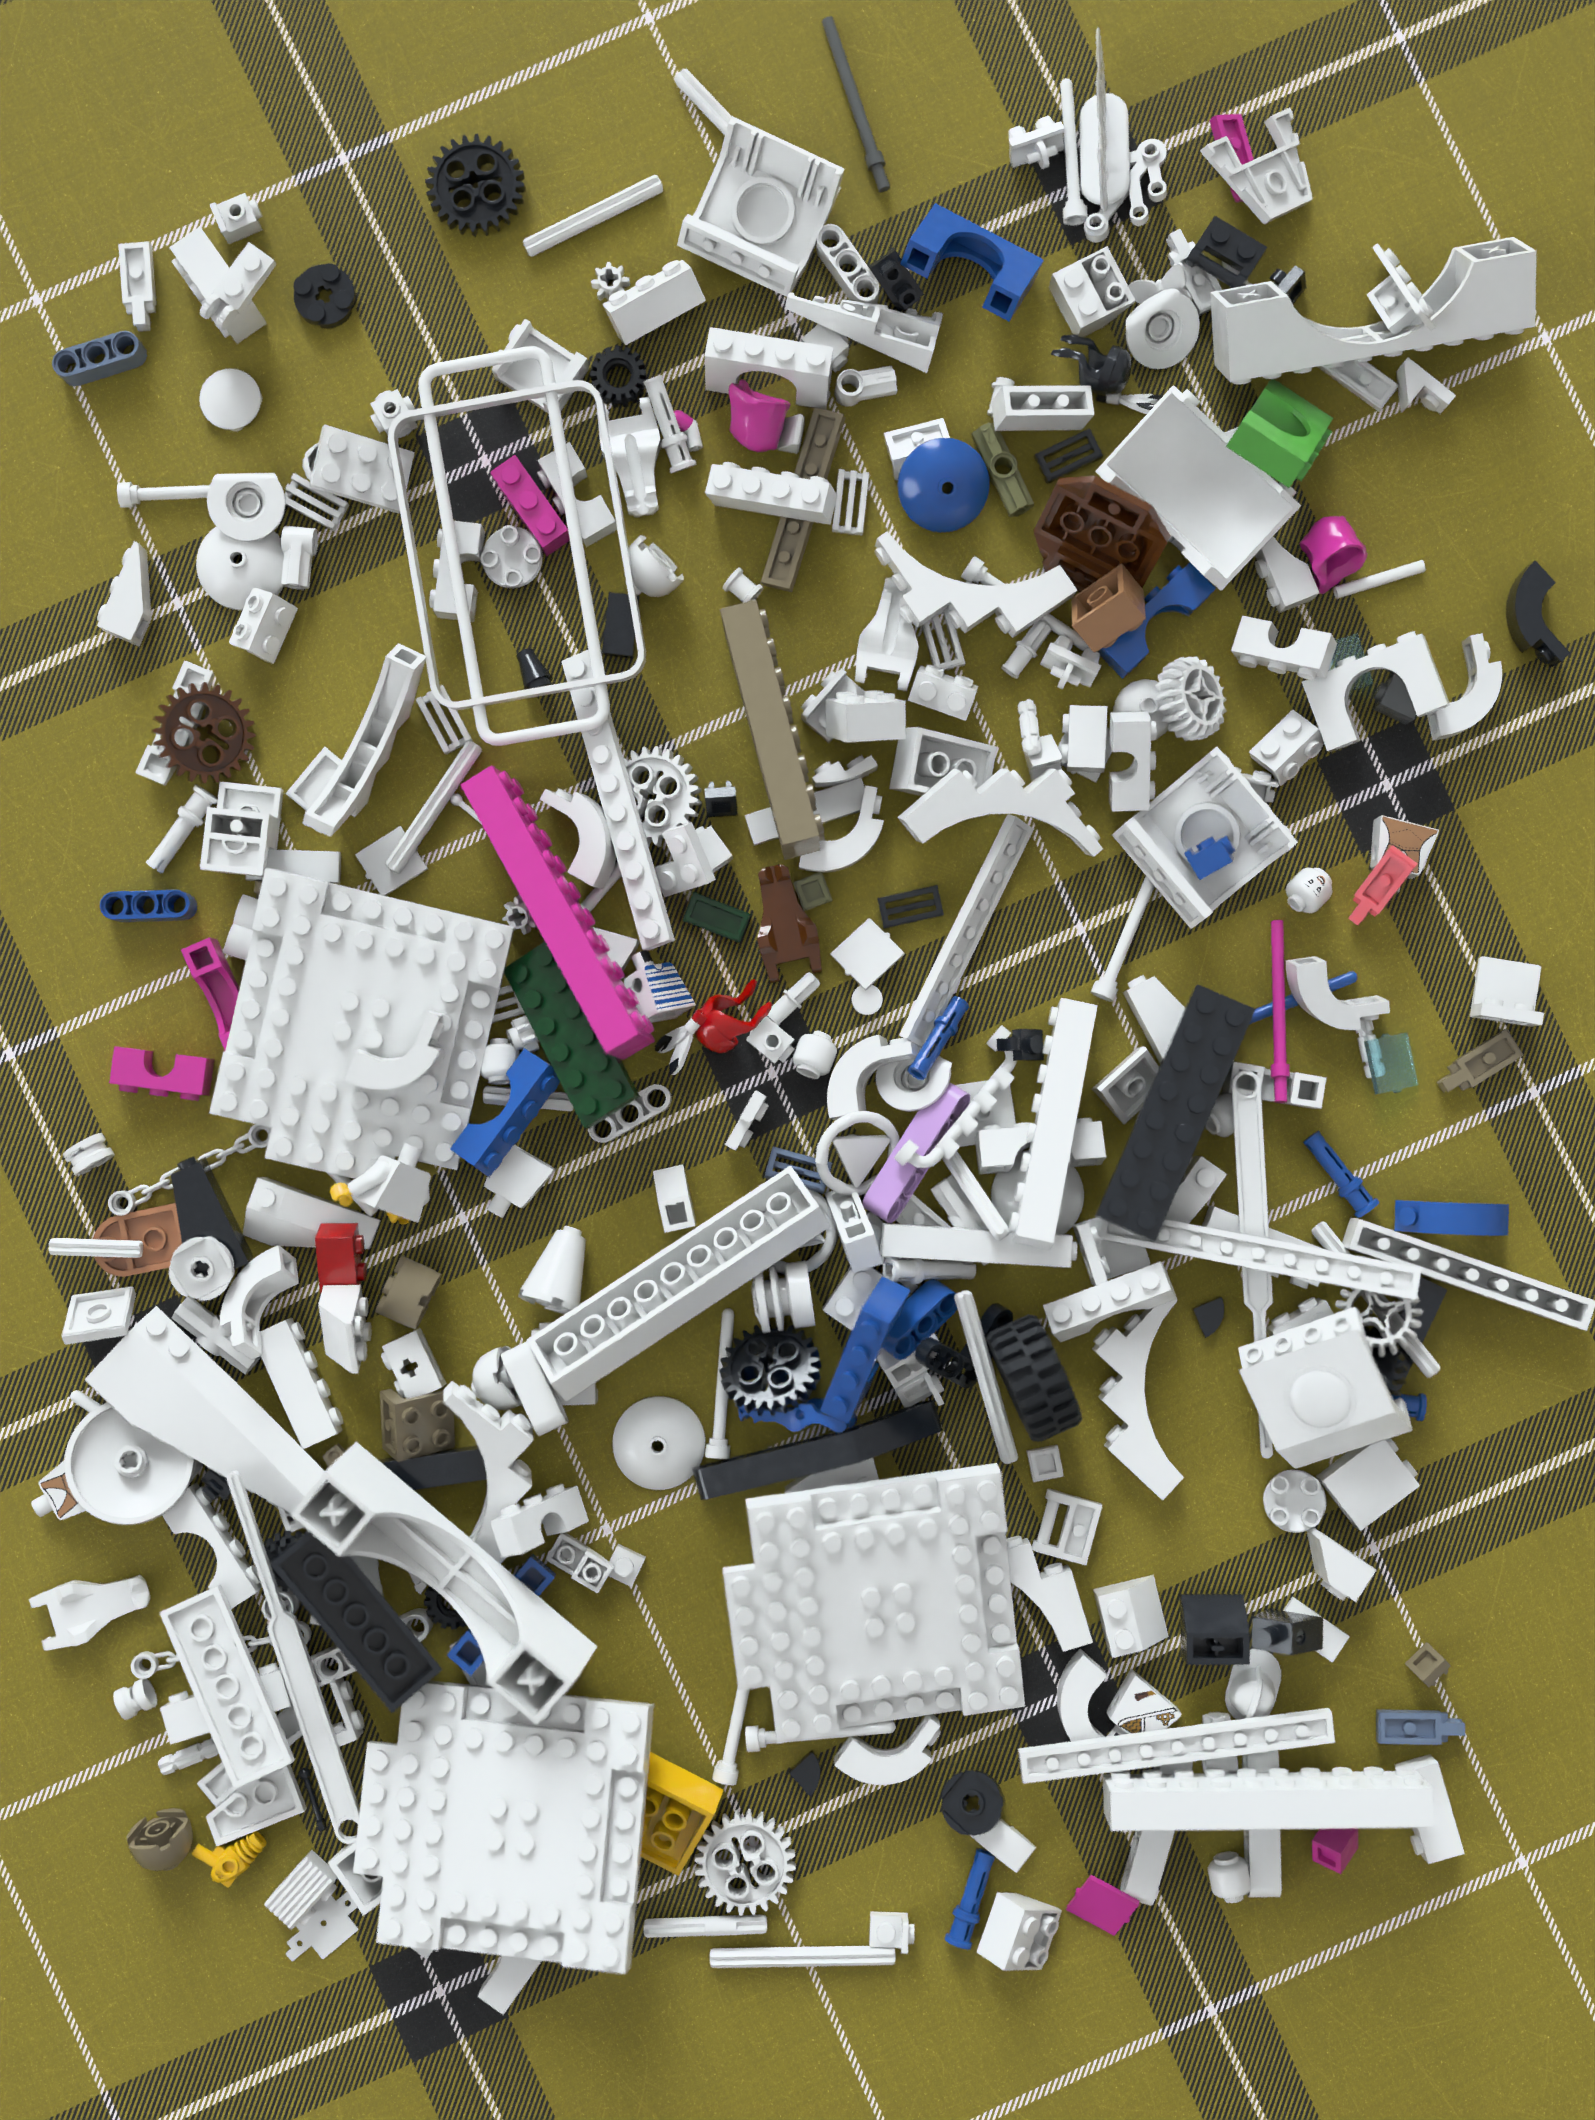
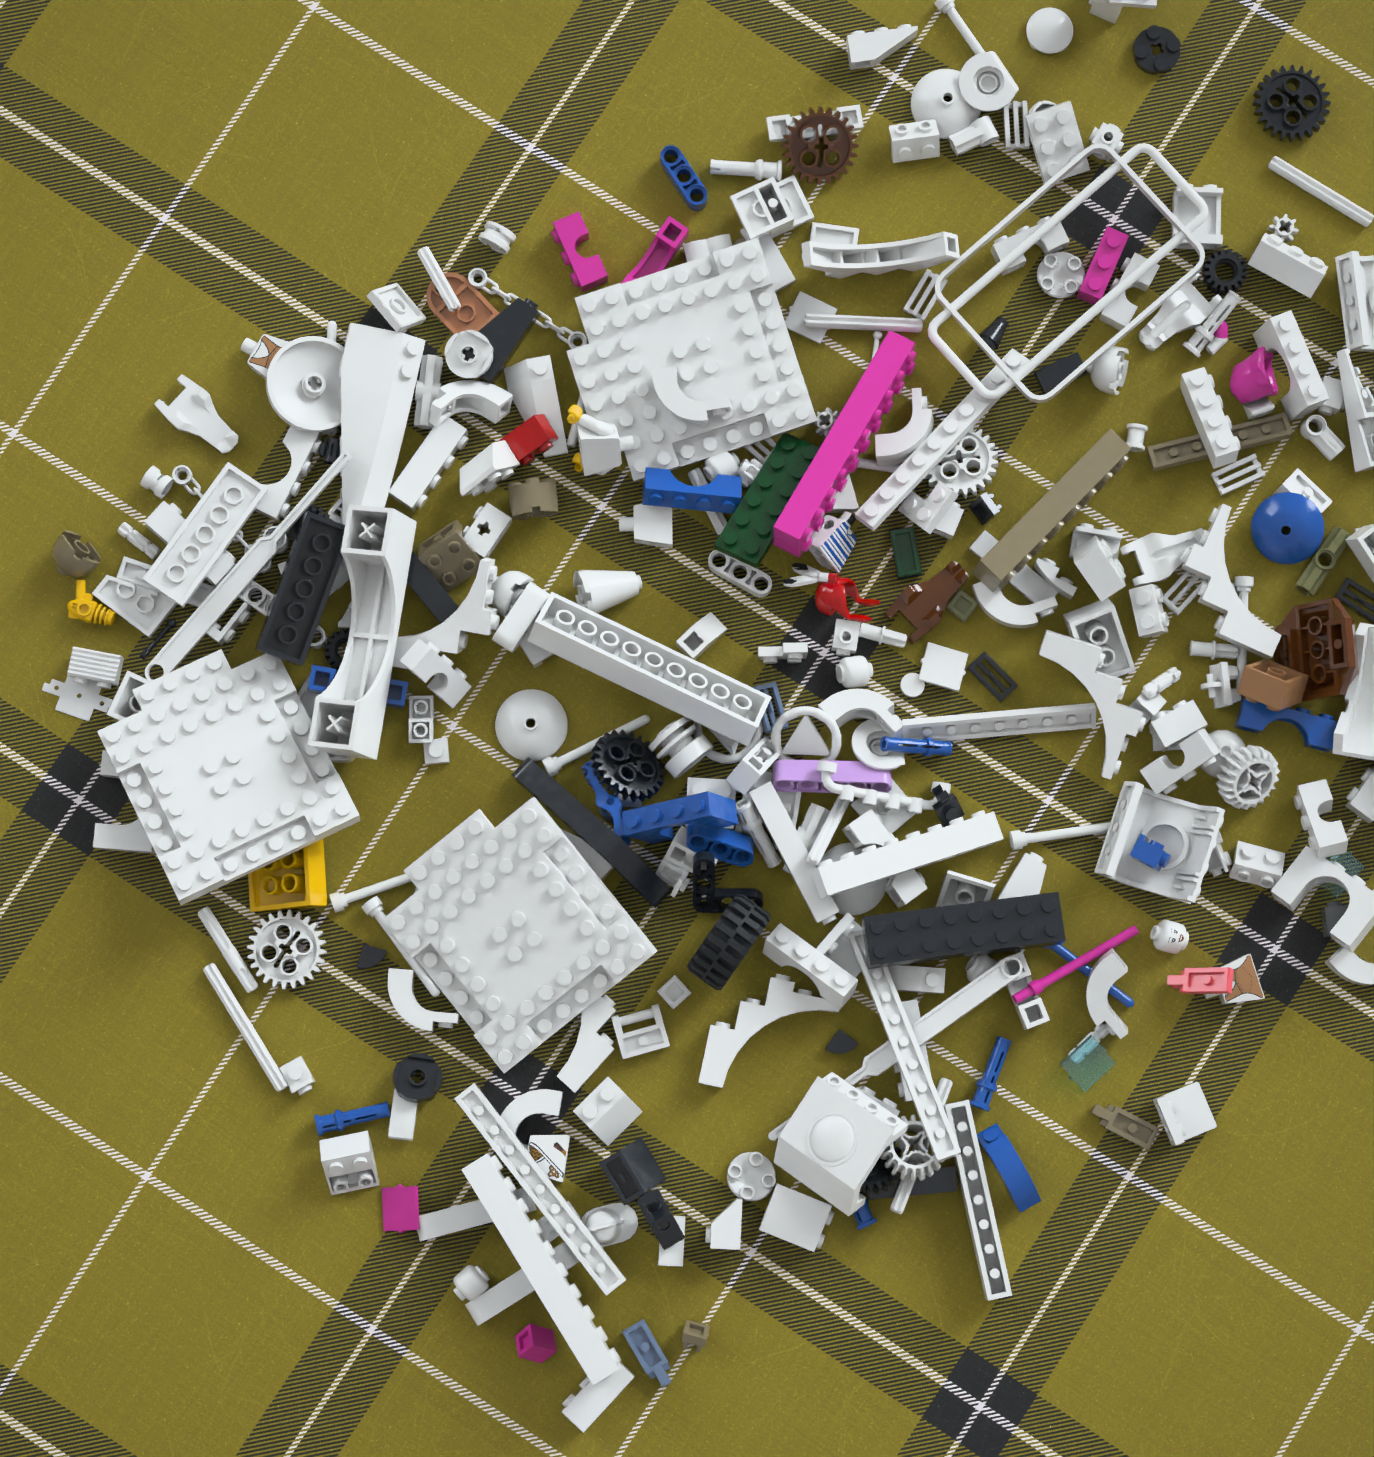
camera: 60 degrees right, 5 degrees down
(986, 1376) = (709, 914): white axle -> none

